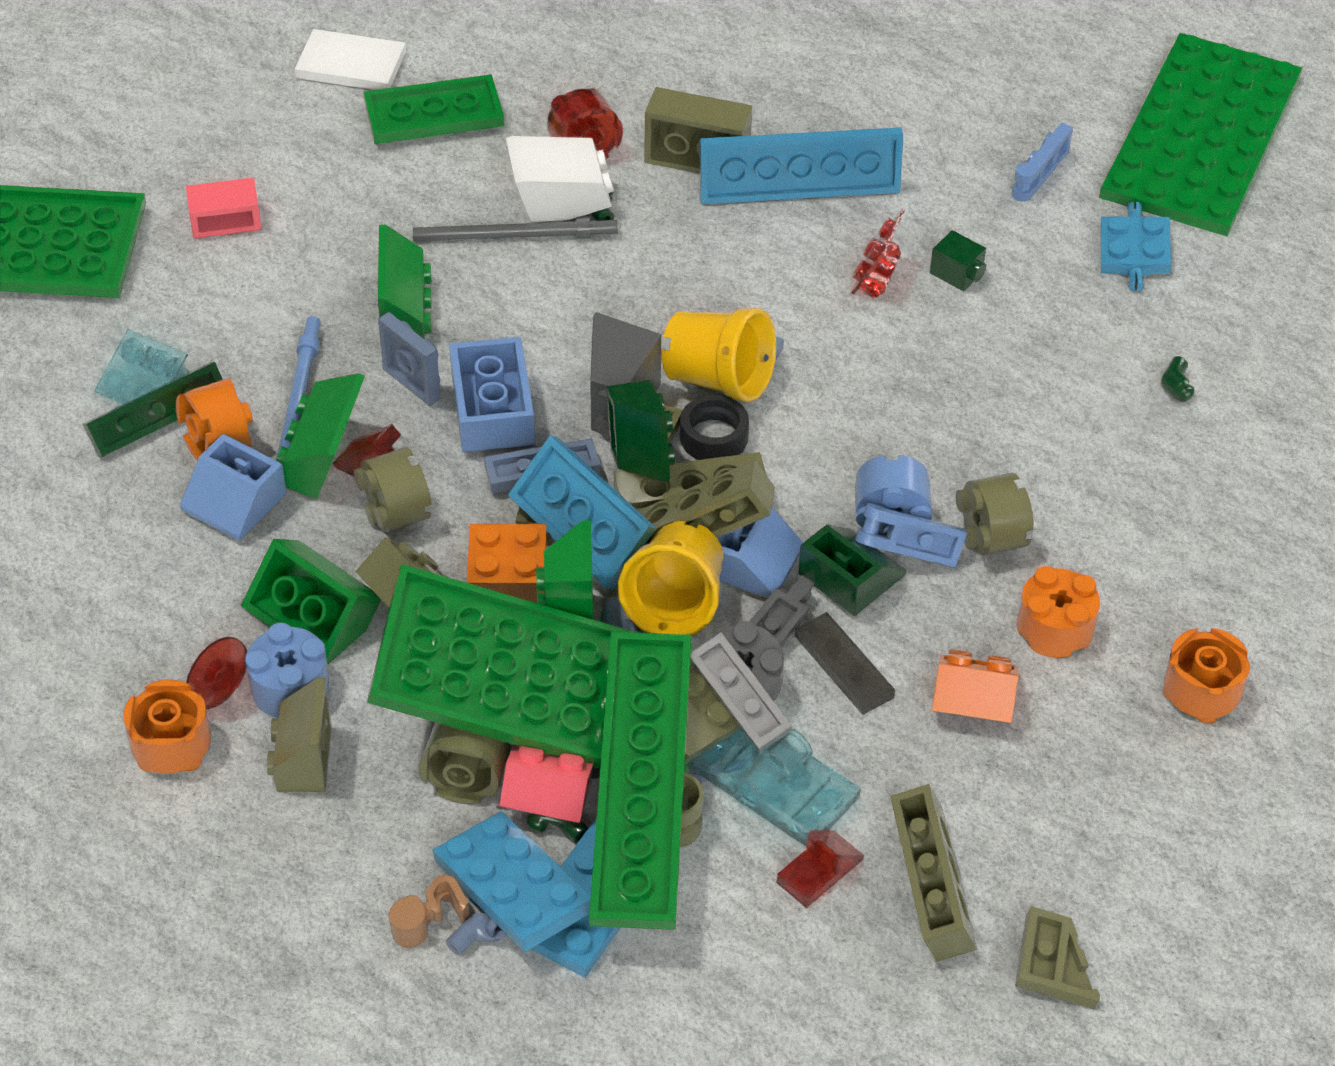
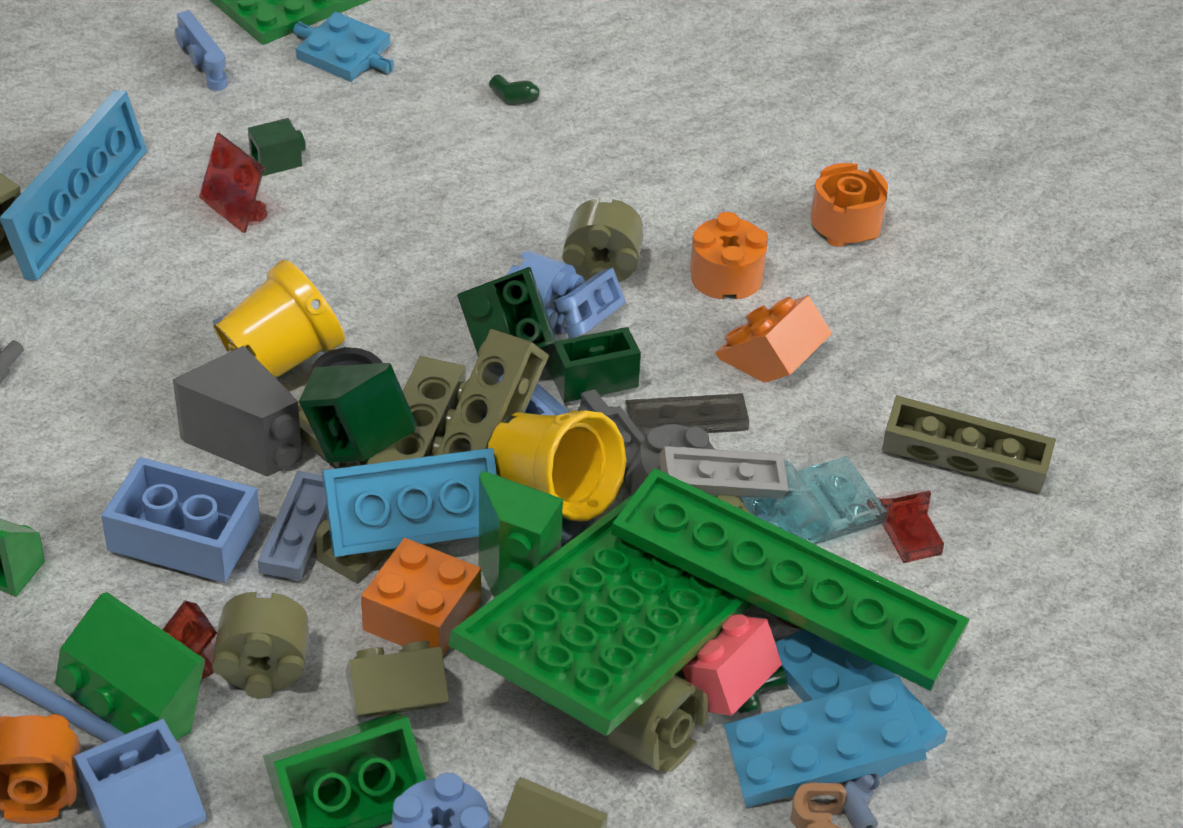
camera: 65 degrees left, 5 degrees down
(409, 358) = (83, 561): sand blue plate -> none
(824, 480) = (508, 306): none -> dark green slope
(1053, 960) = (1079, 417): olive wing -> none

